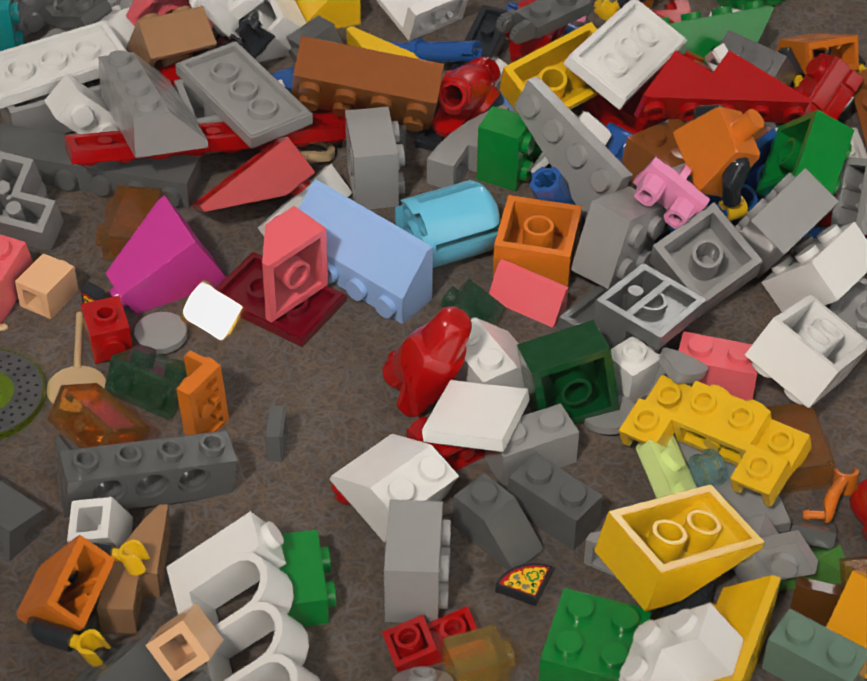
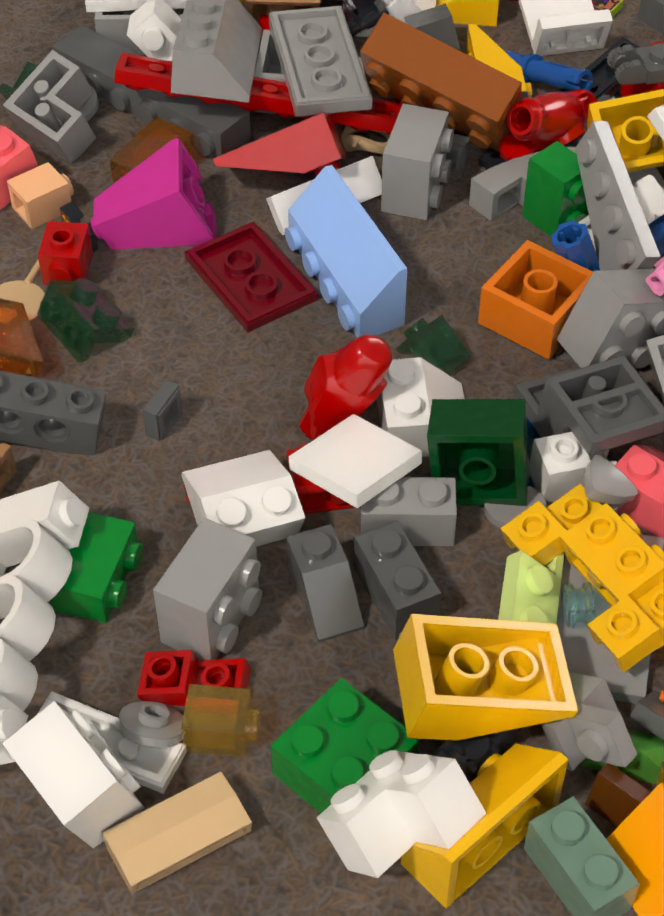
camera: 25 degrees right, 5 degrees up
(161, 331) = (119, 274): light grey piece -> none
(202, 396) = (103, 351): orange bracket -> none
(211, 311) = (174, 267): tile -> none
(292, 261) = (263, 242): coral slope -> none
(452, 219) = (453, 250): medium azure cylinder -> none
(524, 582) = (323, 655): tile -> none
(529, 293) = (501, 350): coral slope -> none

